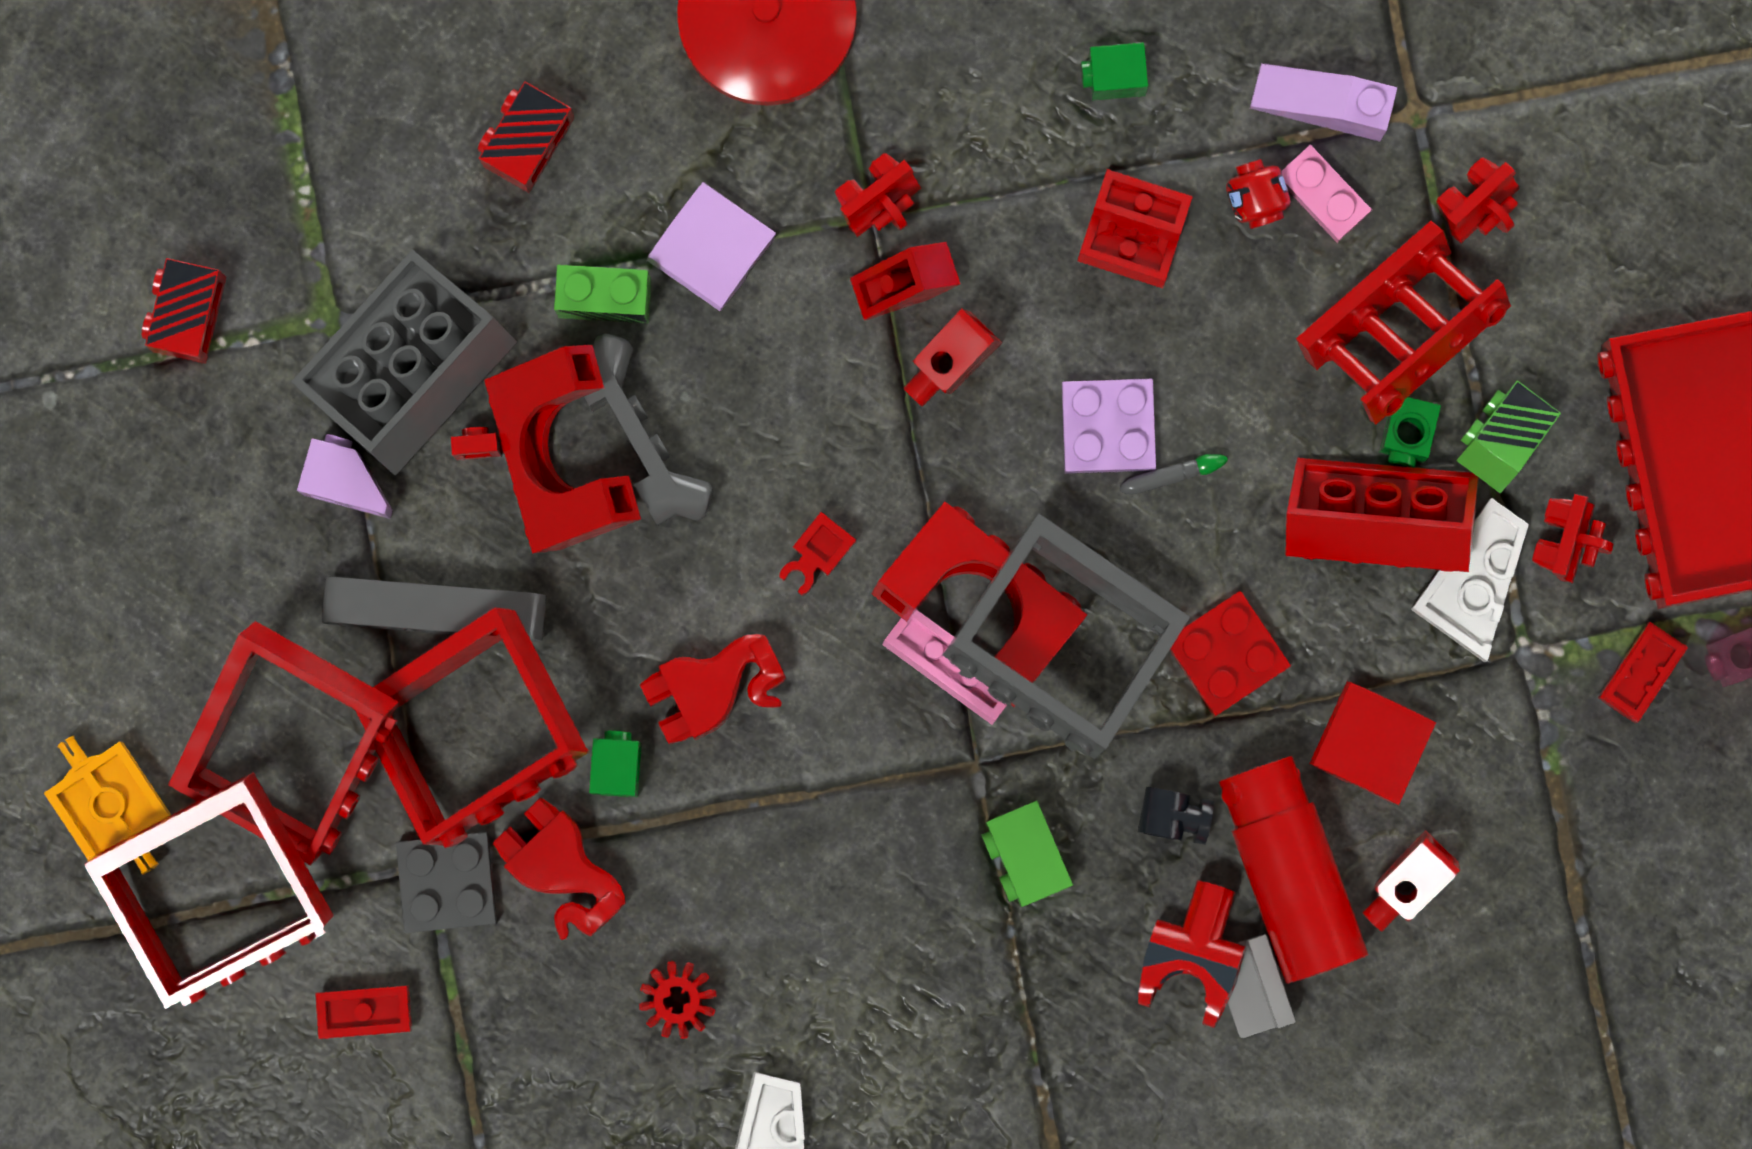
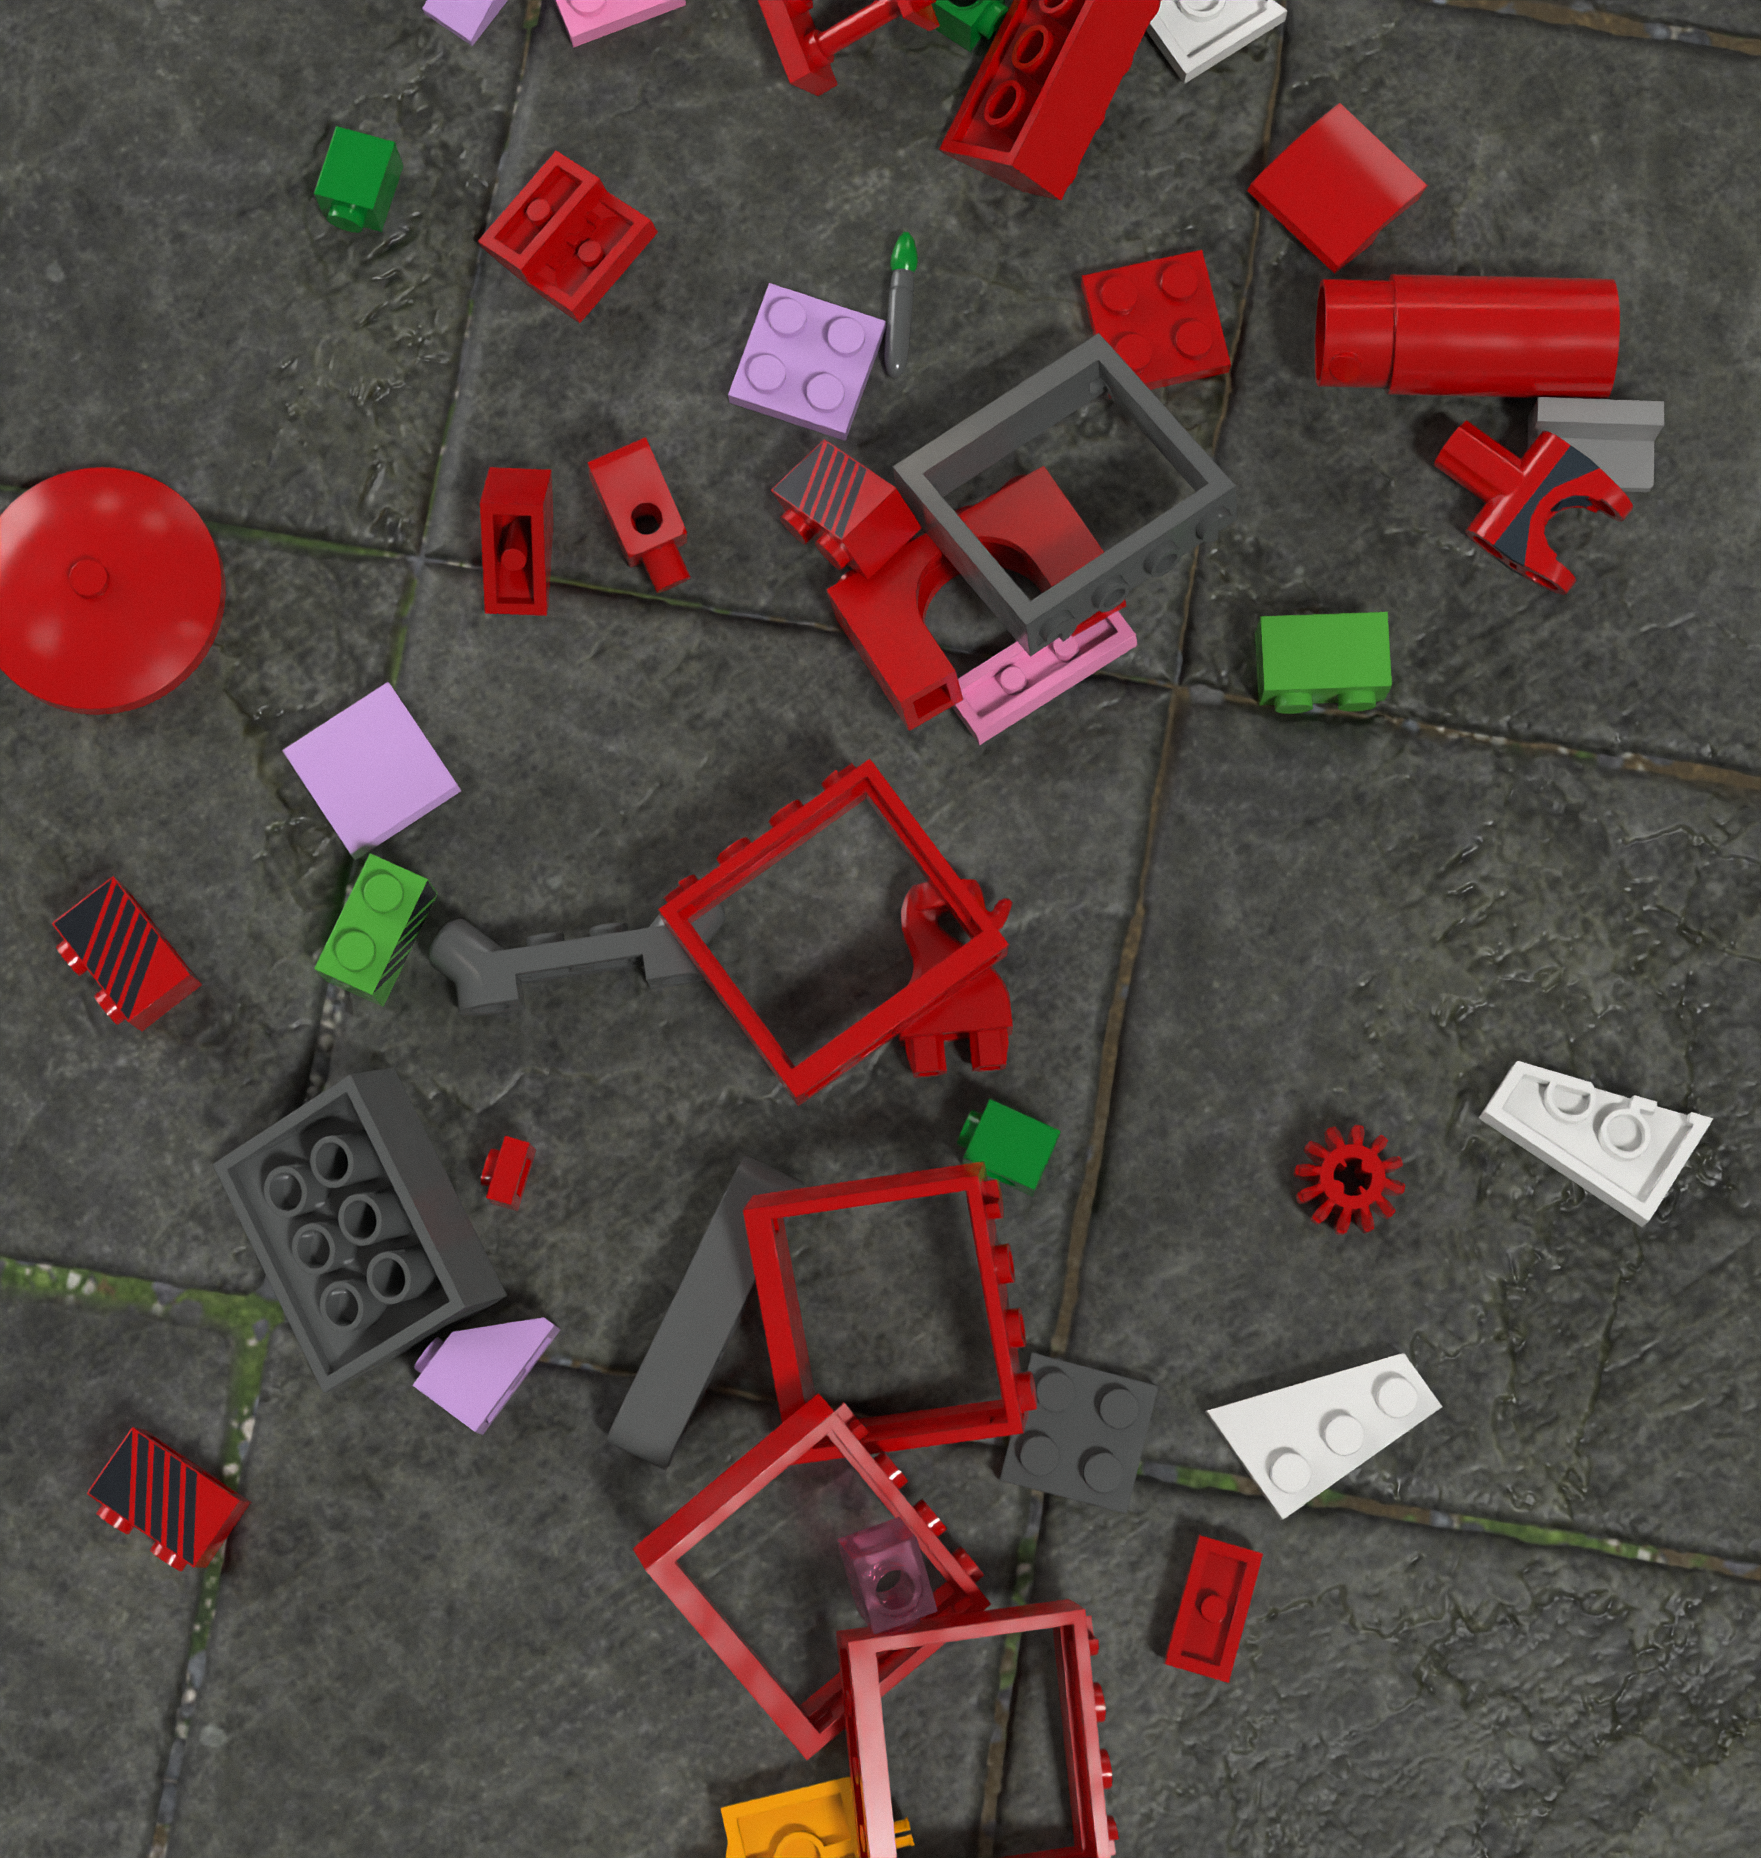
camera: 70 degrees left, 5 degrees down
(310, 782) = (873, 1554): none -> clear pink brick
(508, 1042) = (1323, 1428): none -> white wing
(524, 408) = (483, 1088): red arch -> none
(558, 865) = (1112, 1269): red hips -> none
(734, 519) = (789, 830): none -> red window
(821, 548) = (813, 761): red plate -> none
(882, 200) = (404, 530): red hips -> none
(1004, 492) = (844, 510): none -> red brick
(1170, 815) = (1339, 463): black piece -> none
(1258, 194) = (586, 67): red head -> none
(1423, 864) = (1533, 195): torso -> none

